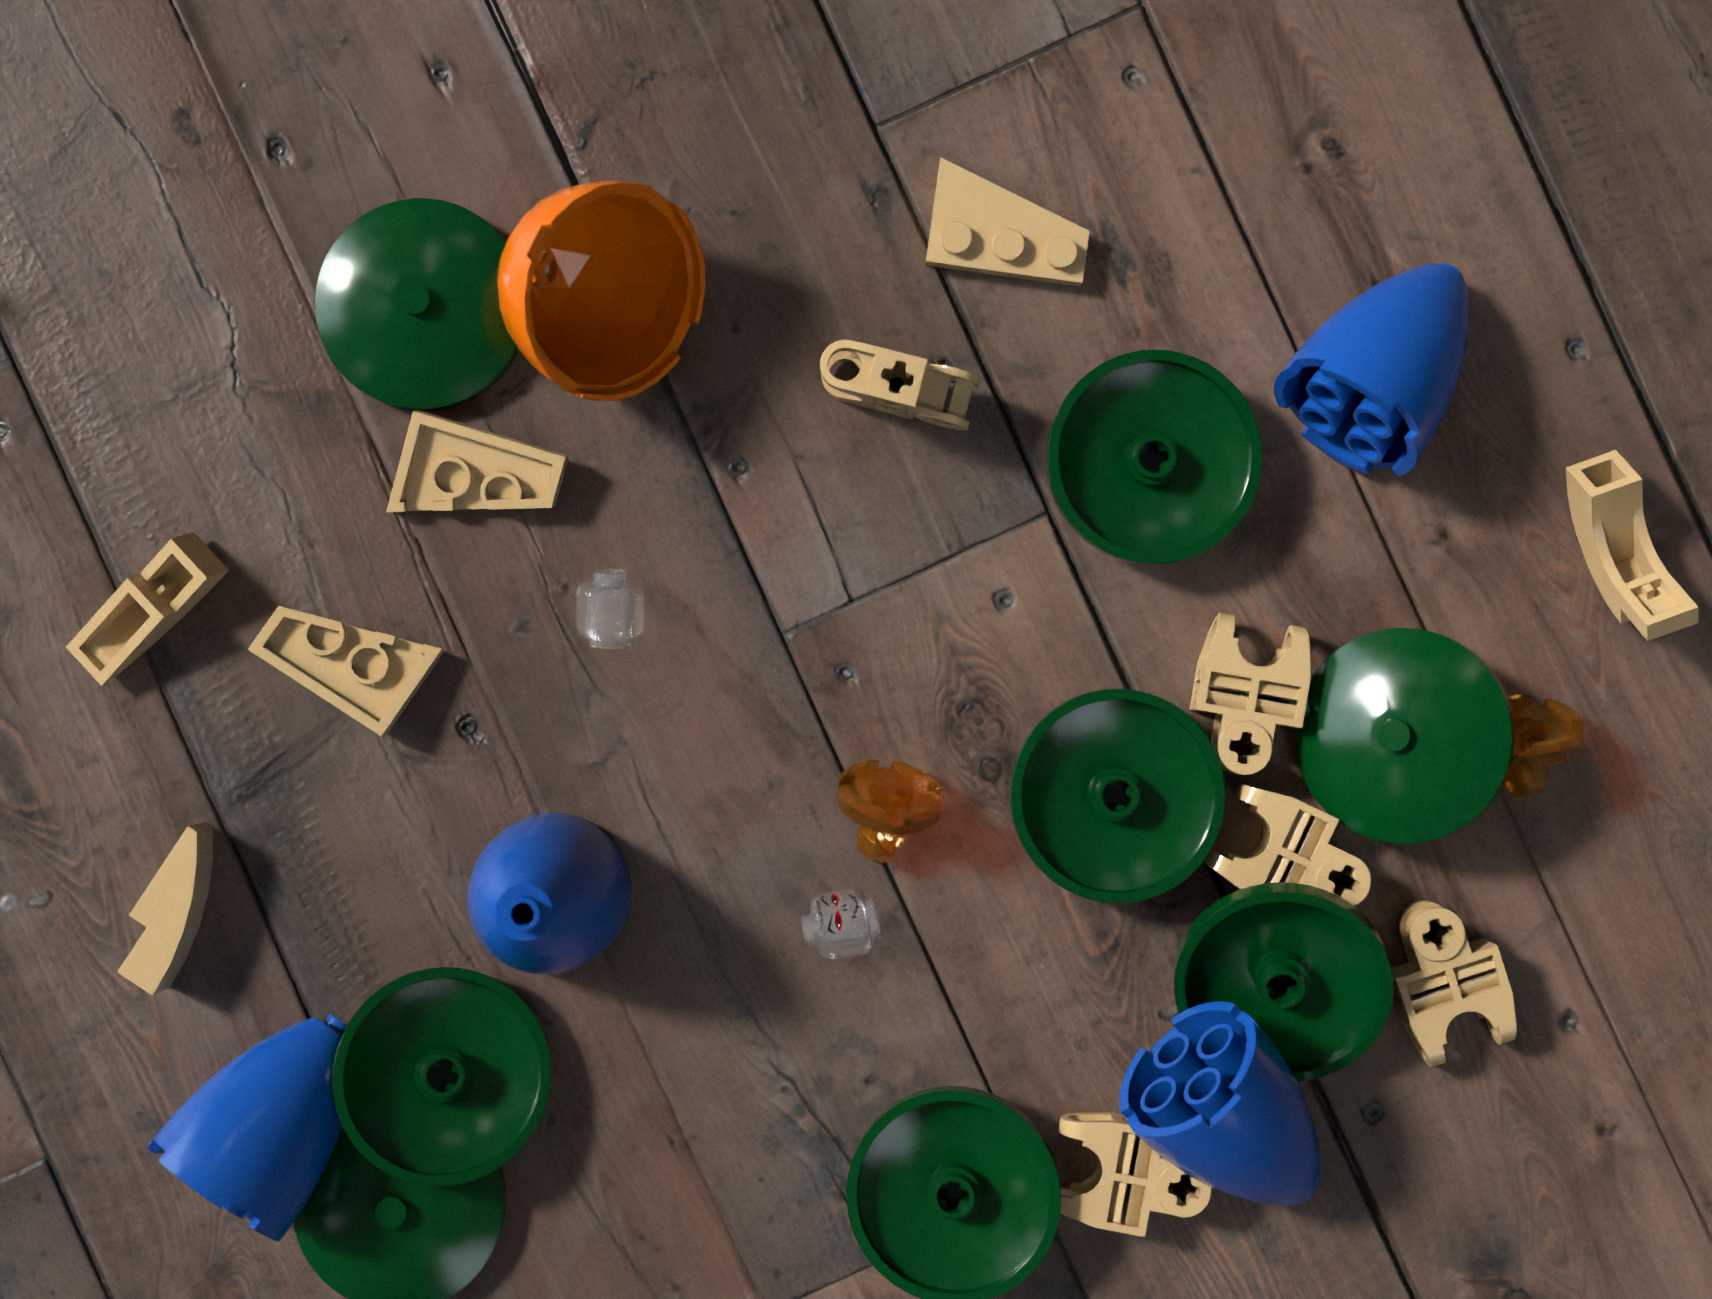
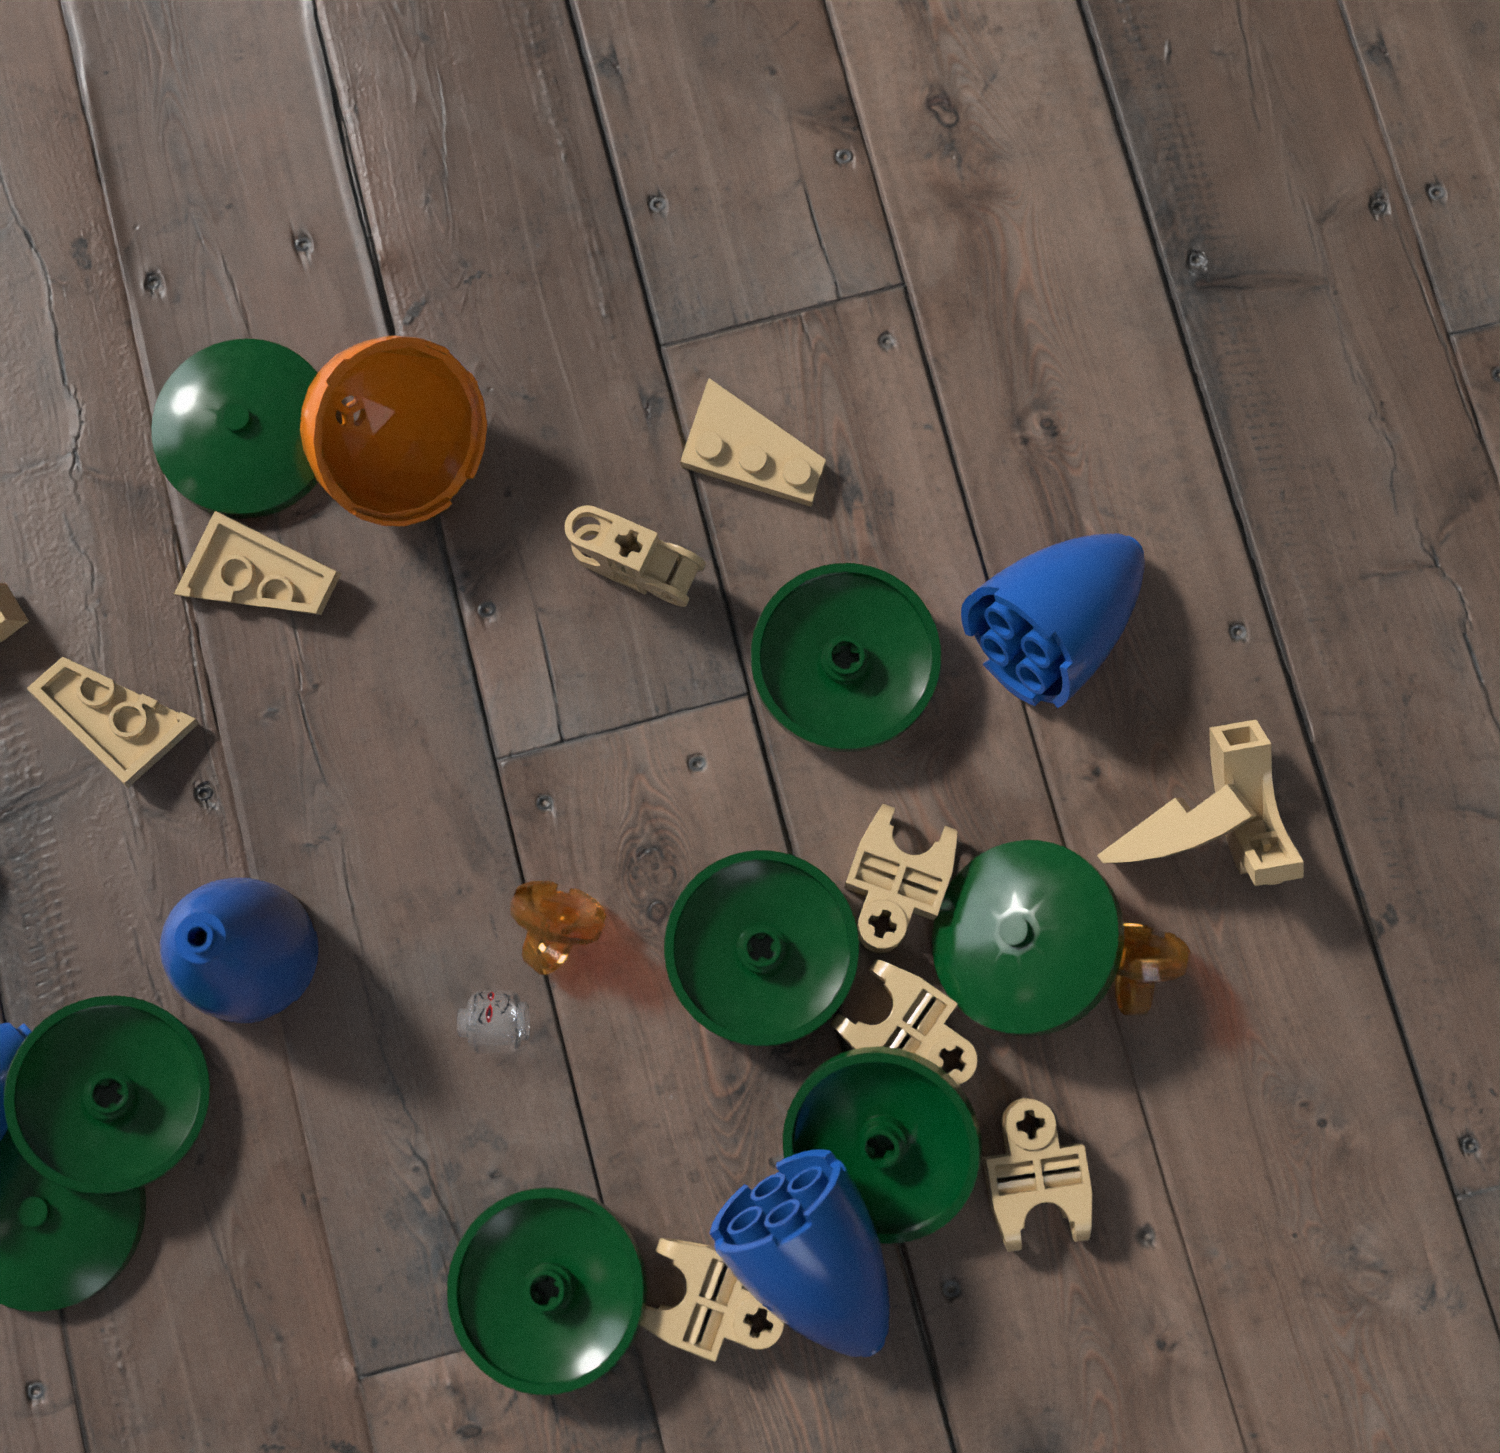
camera: 15 degrees right, 10 degrees down
(609, 609) = (347, 708): clear head -> none
(1553, 589) = (1180, 828): none -> tan slope

